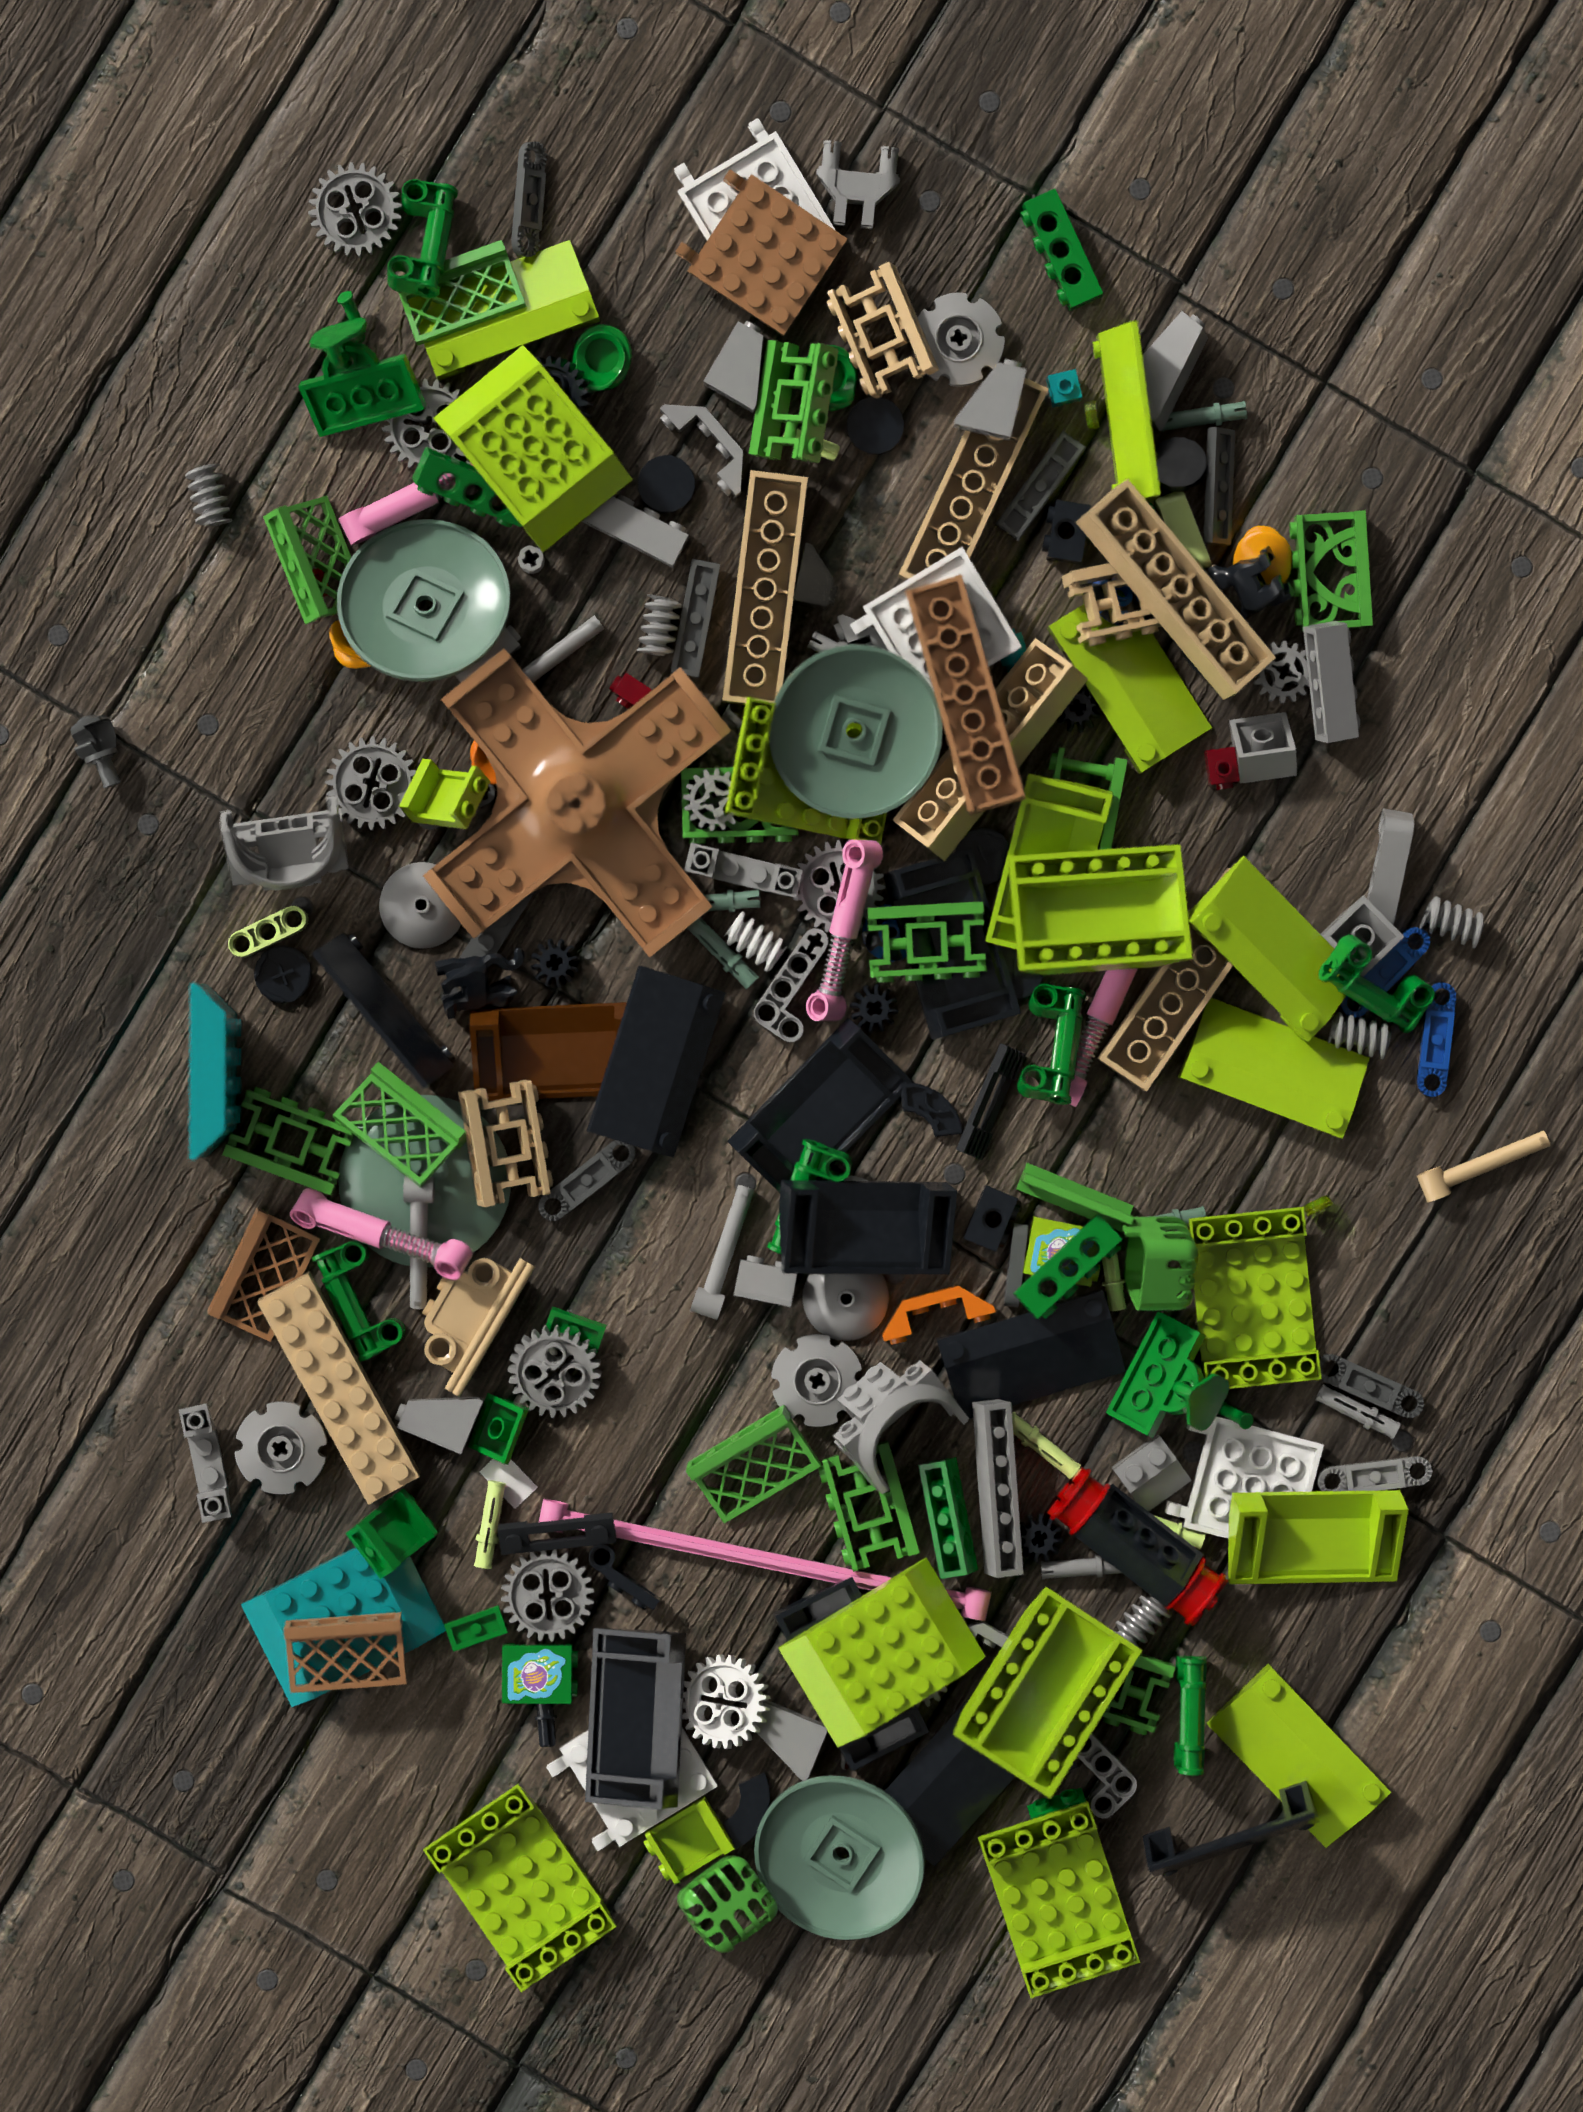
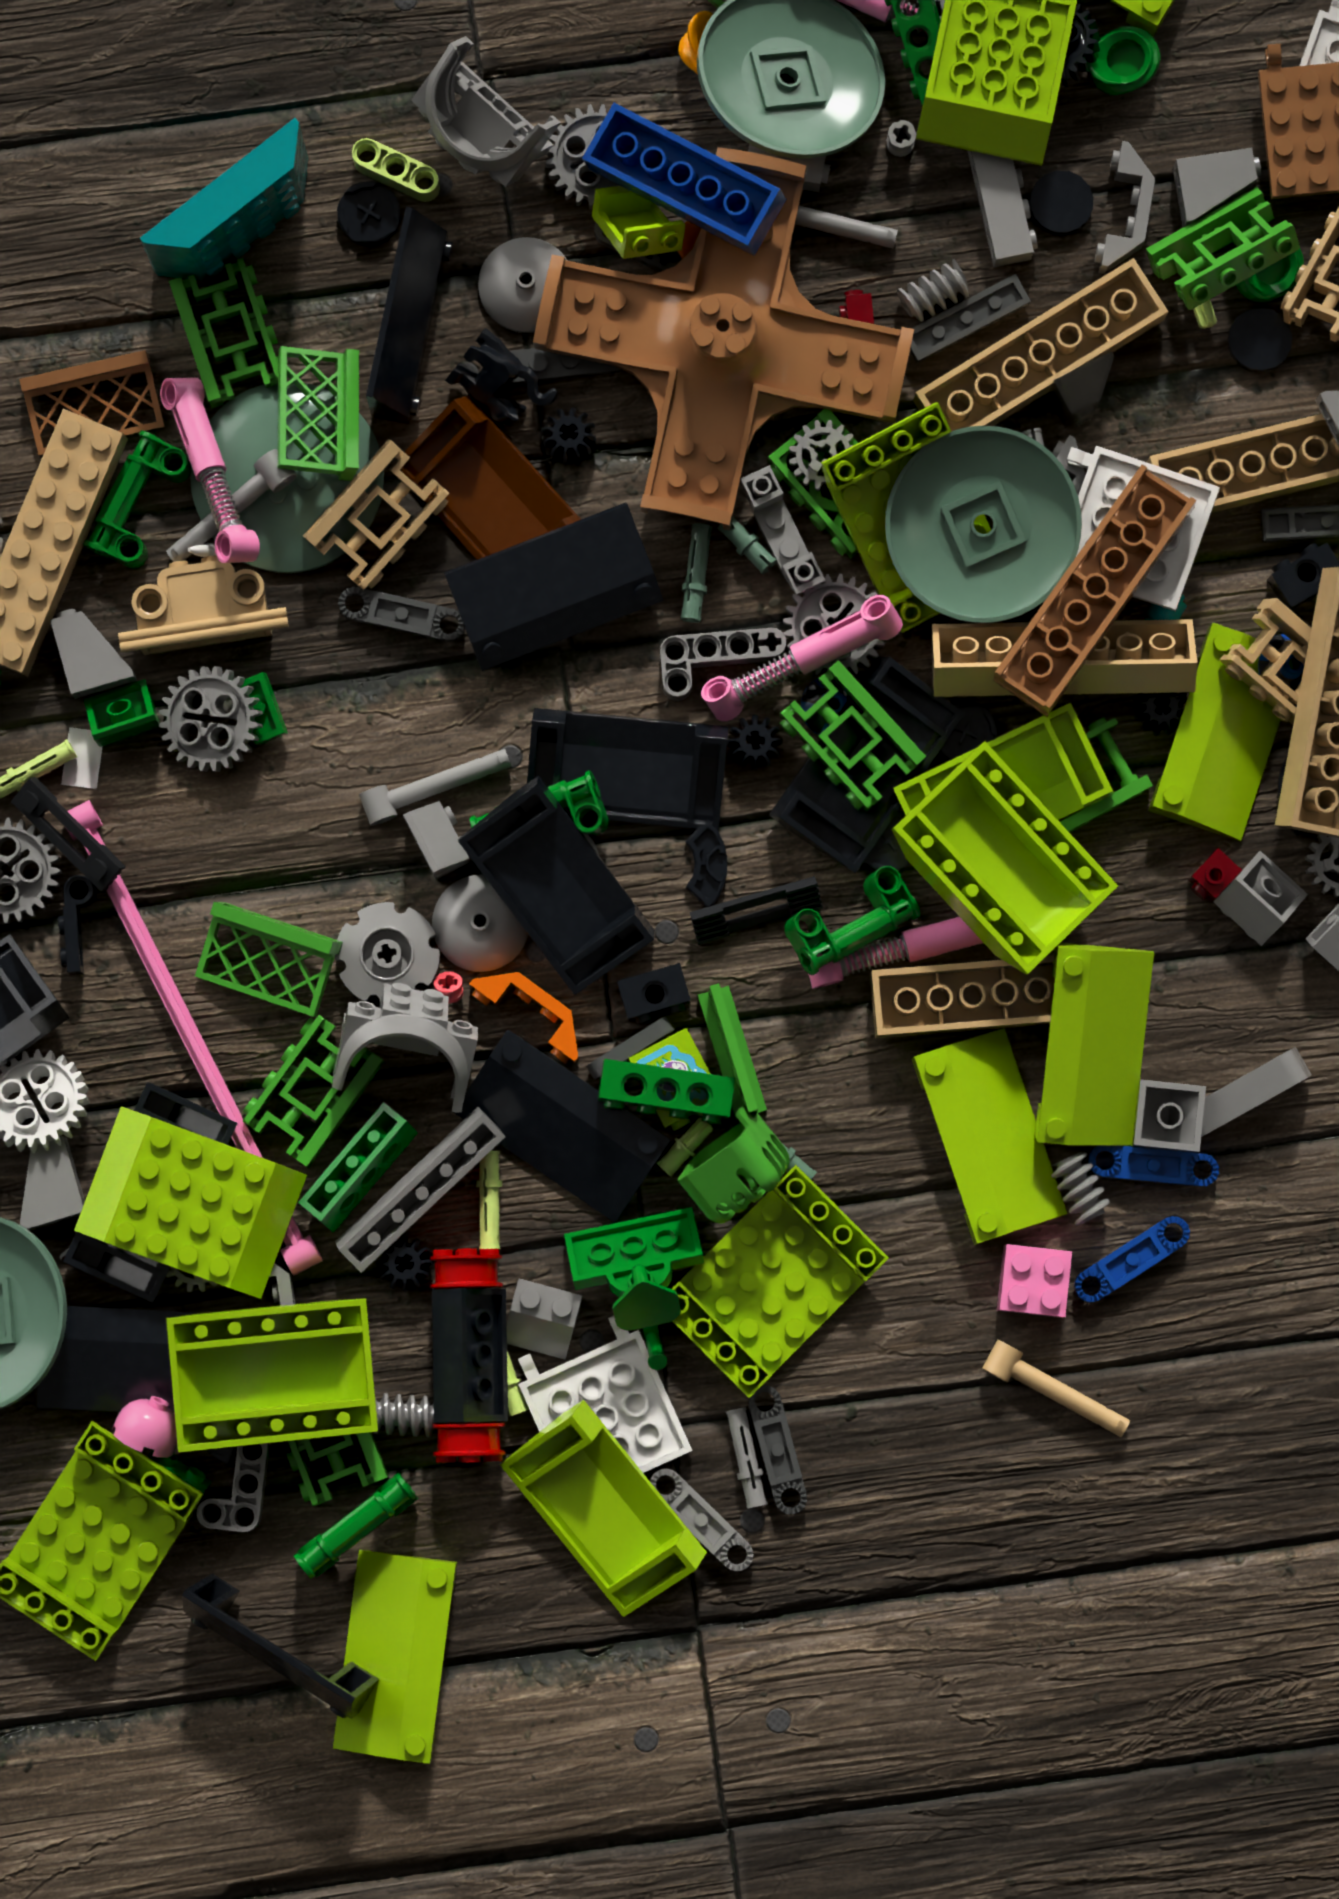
camera: 50 degrees right, 5 degrees down
(434, 1279) = (203, 550): none -> white helmet
(445, 741) = (684, 179): none -> blue brick
(755, 942) = (727, 593): white piece -> none
(866, 1351) = (451, 980): none -> coral bush
(1010, 1802) = (147, 1425): none -> bright pink cylinder
(1077, 1567) = (405, 1319): light grey pin -> none
(1317, 1205) = (899, 1273): clear neon green tile -> none
(1370, 995) = (1123, 1162): green piece -> none
(1398, 1118) = (1034, 1281): none -> bright pink brick
(1453, 921) = (1247, 1188): light grey piece -> none

